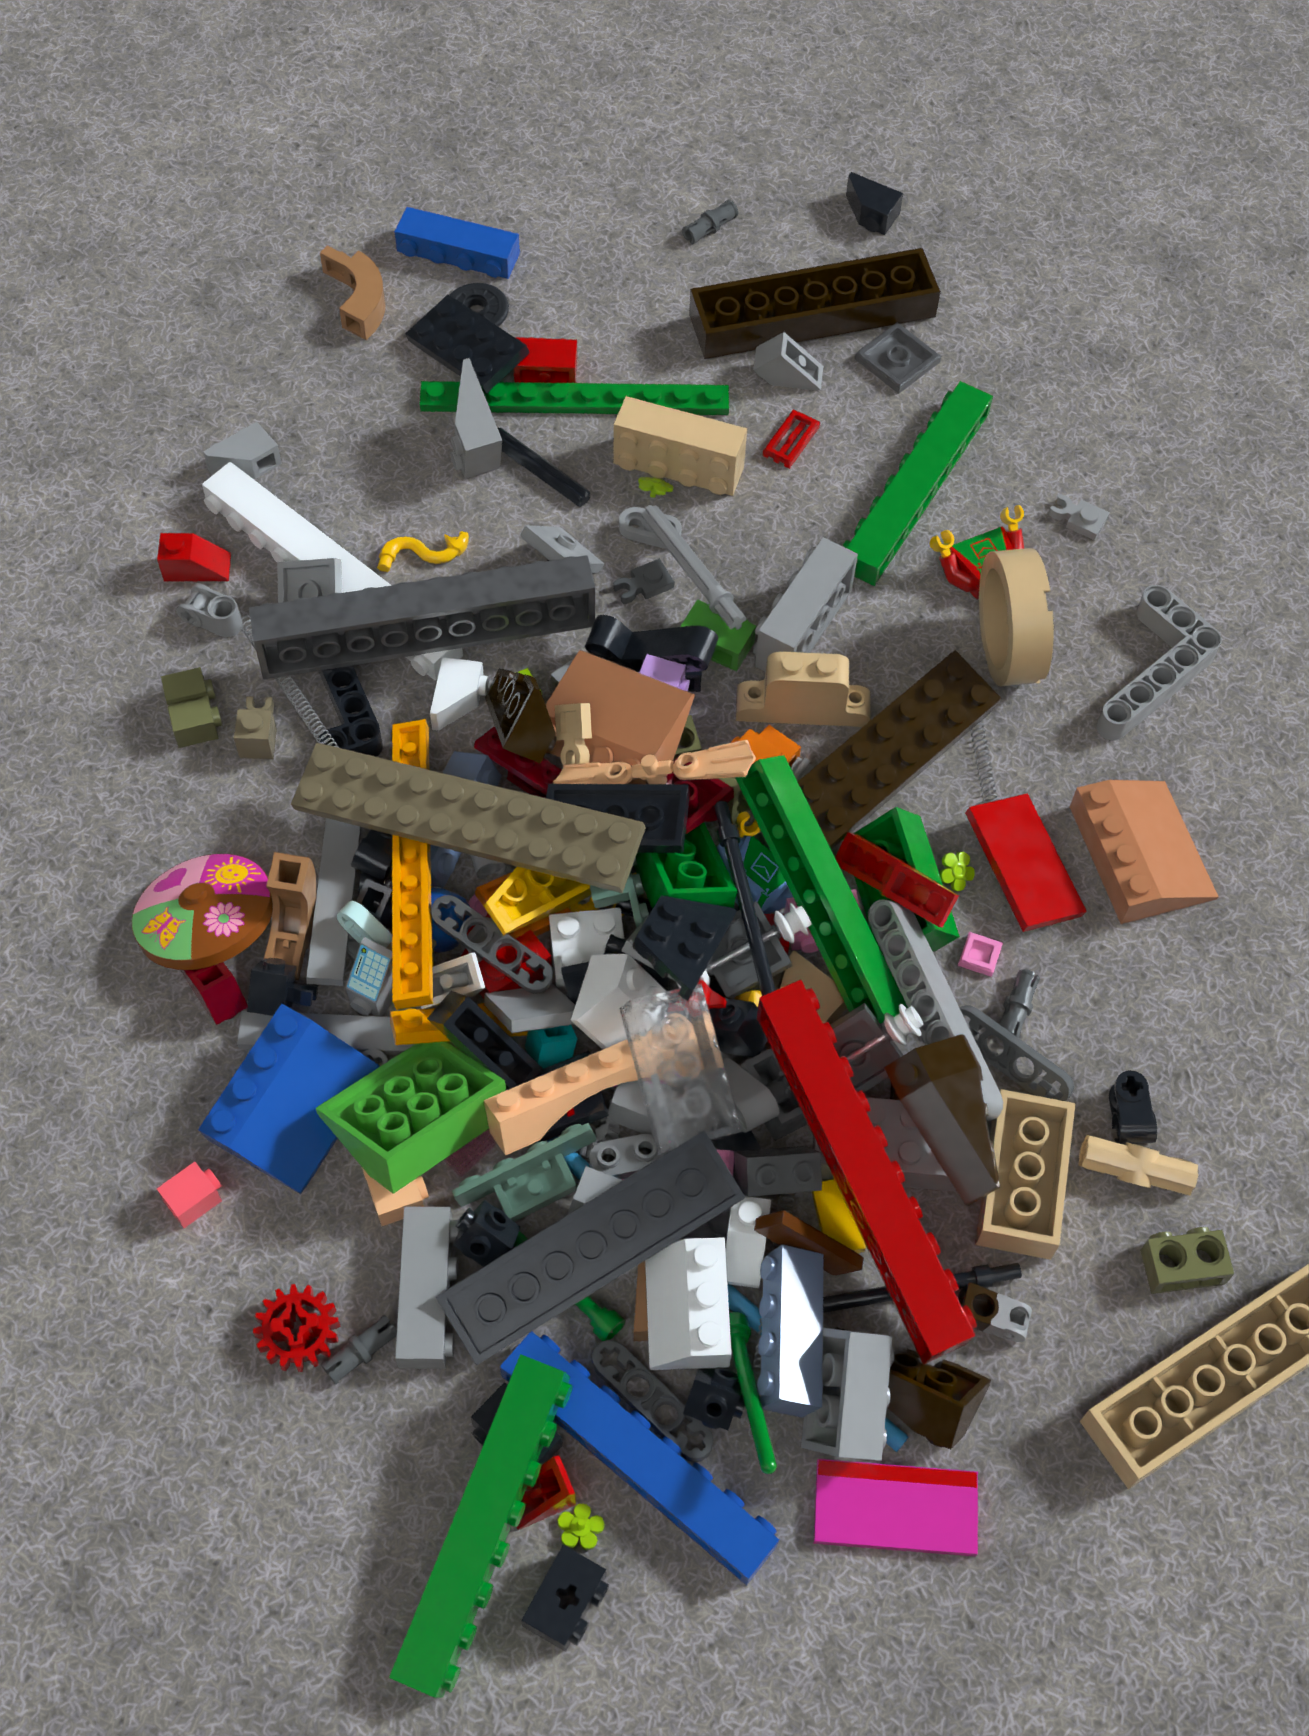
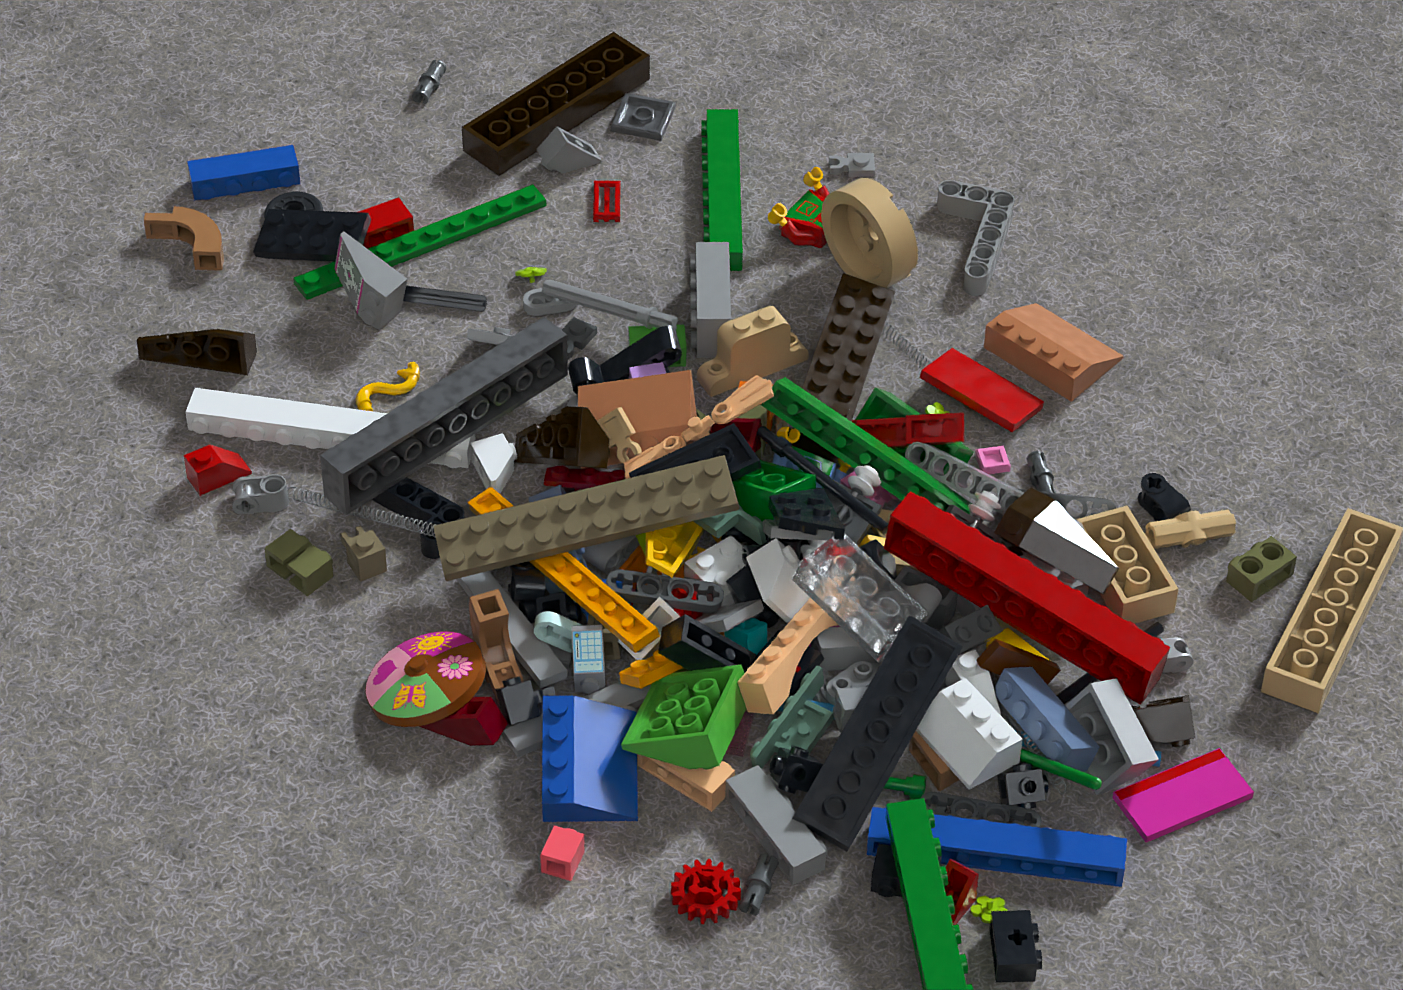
camera: 30 degrees left, 15 degrees down
(248, 449) = (195, 373): light grey slope -> none
(291, 428) = (203, 349): none -> dark brown wedge
(308, 578) = (325, 435): light grey plate -> none
(679, 446) = (535, 234): tan brick -> none
(873, 203) = (543, 20): black slope -> none

